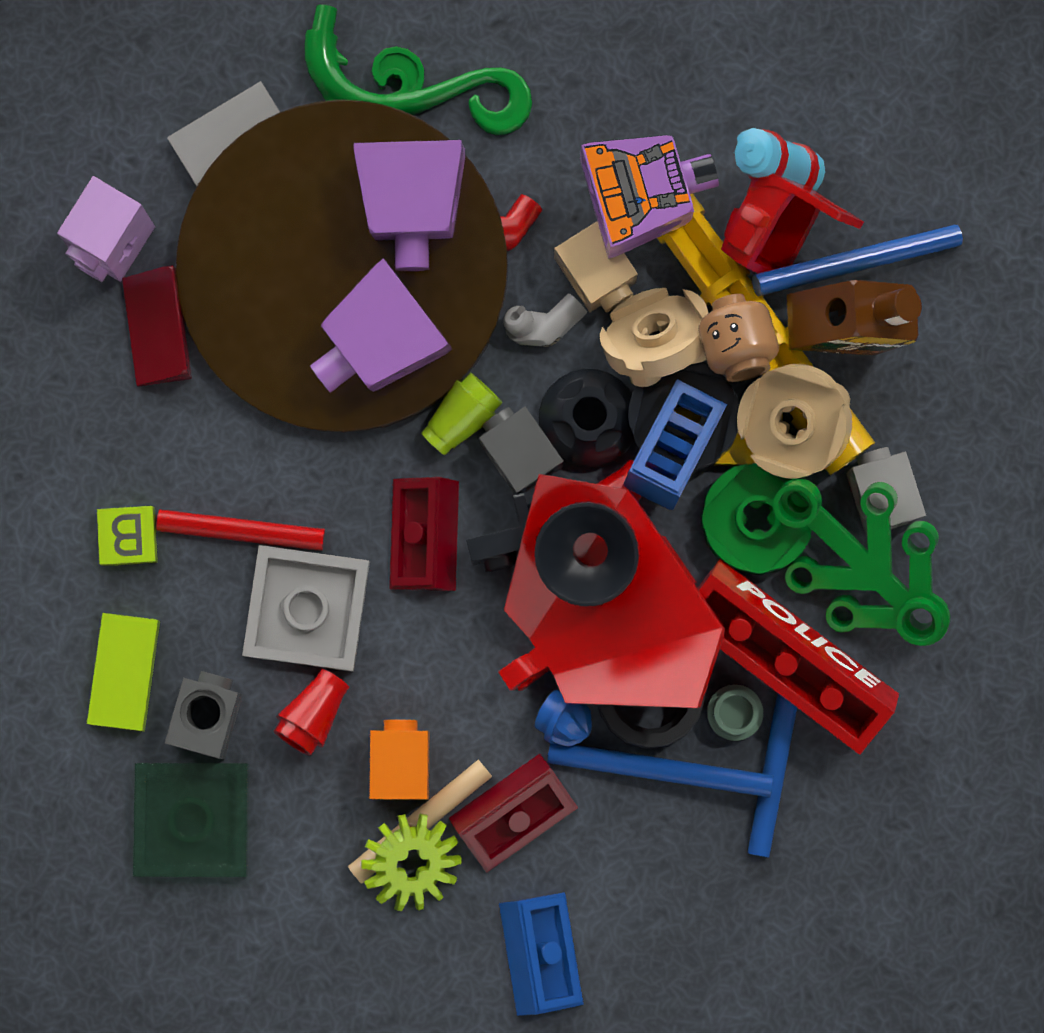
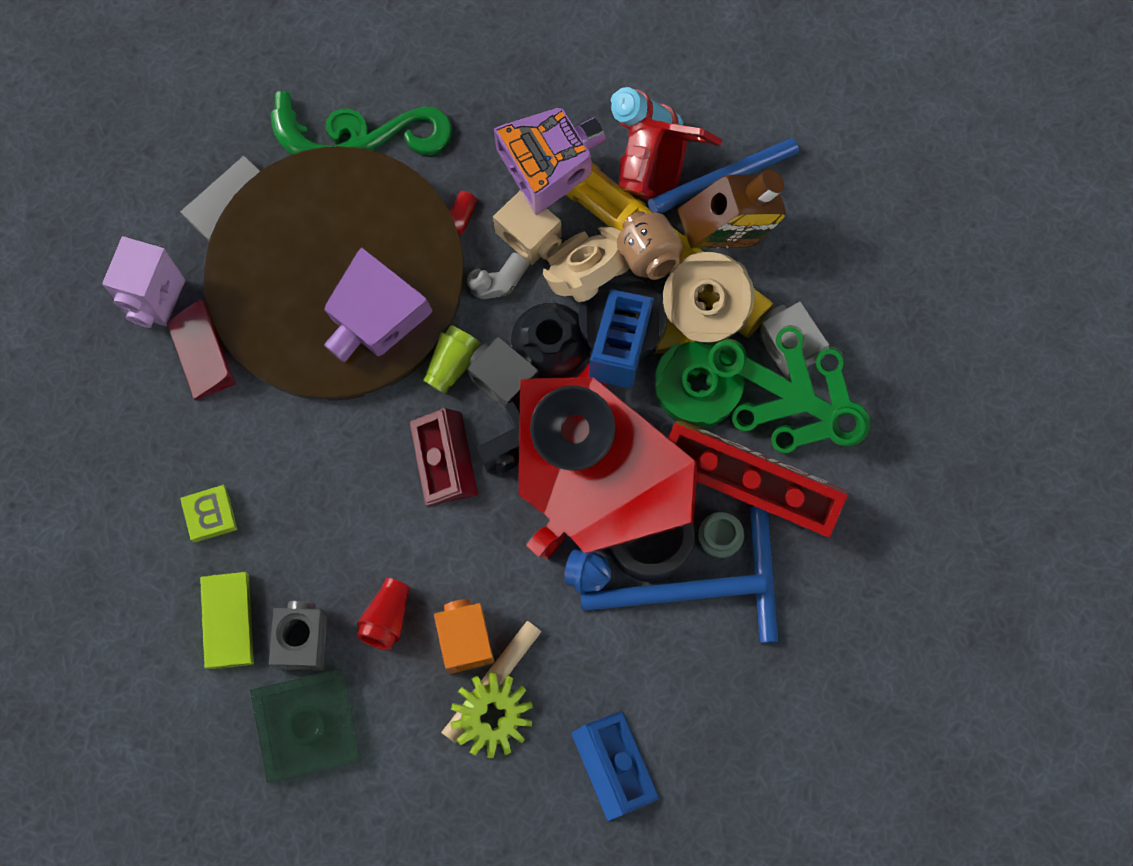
camera: 10 degrees left, 10 degrees down
(240, 530) = (297, 488): red bar -> none
(306, 608) = (362, 536): light grey tile -> none
(411, 194) = (373, 199): medium lavender torso -> none
(513, 813) = (565, 657): dark red slope -> none

